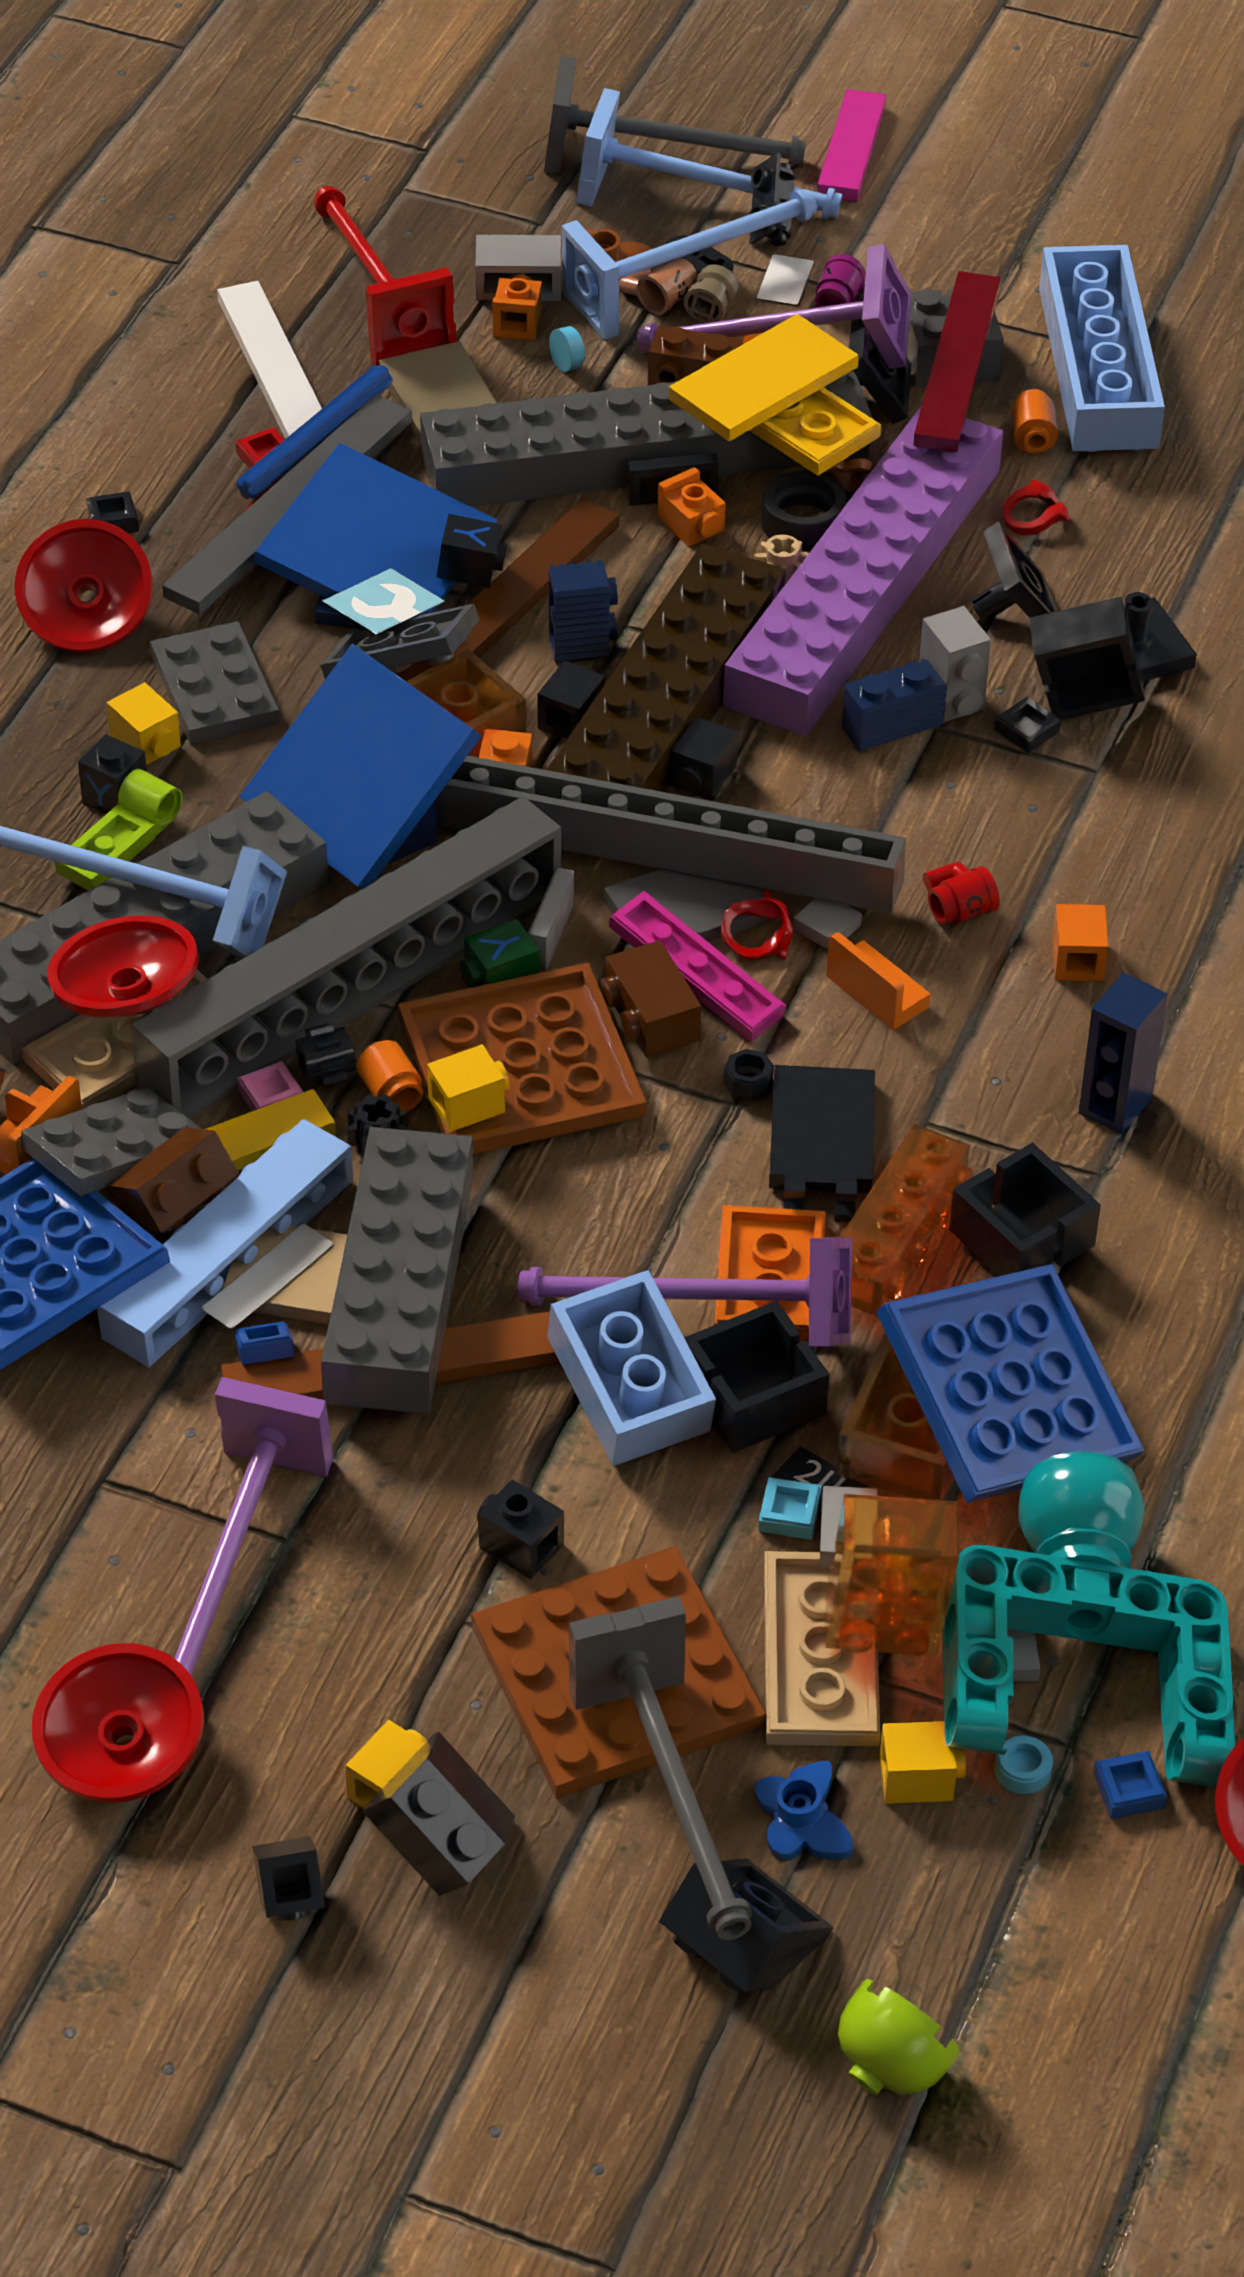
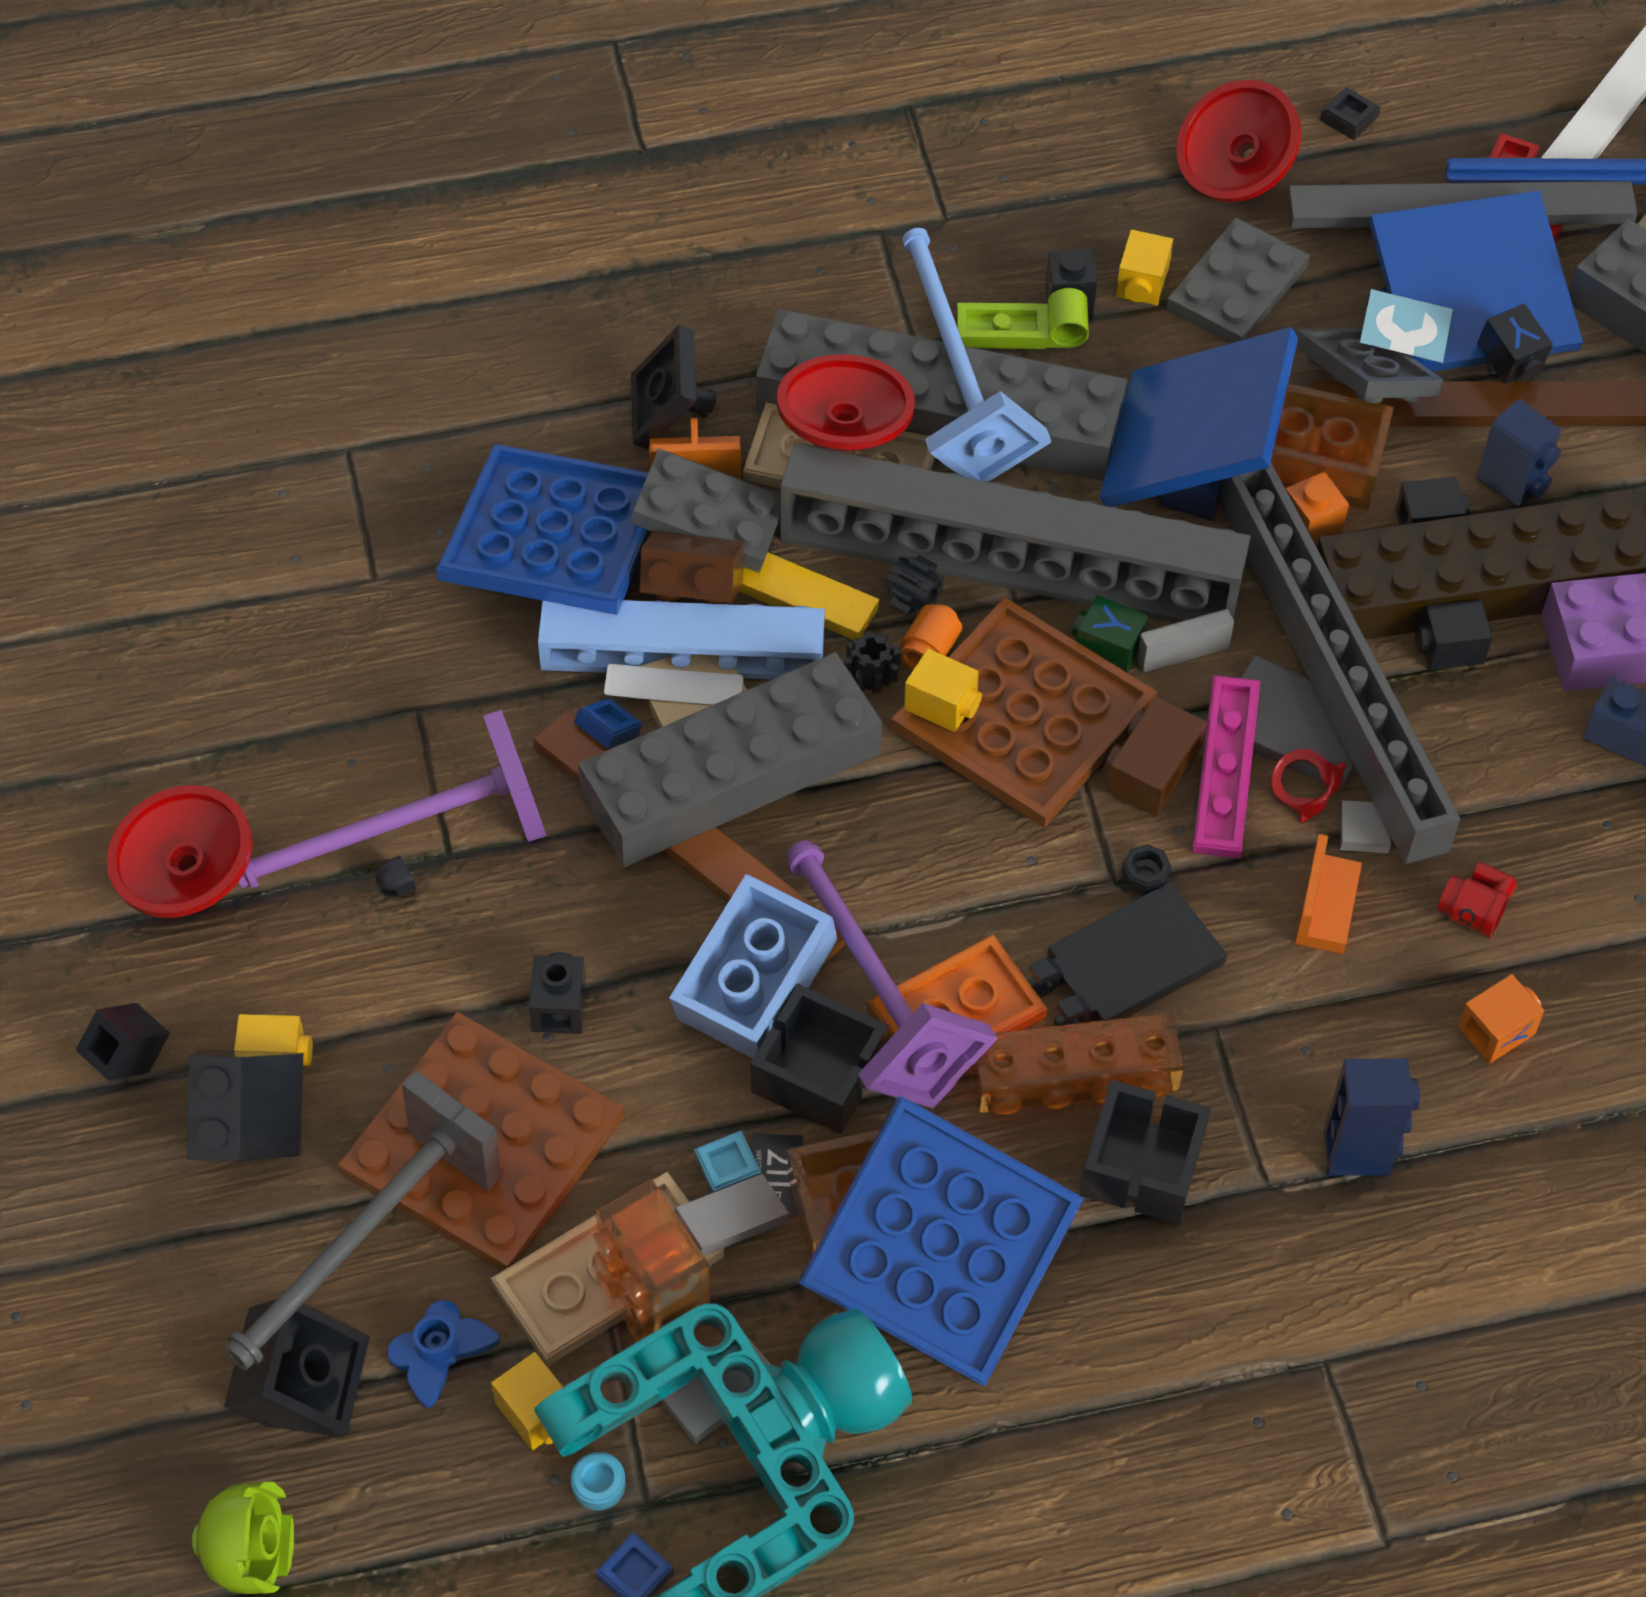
camera: 55 degrees right, 10 degrees up
(267, 1086) = (862, 571): bright pink tile -> none
(286, 1583) = (394, 878): none -> black hinge

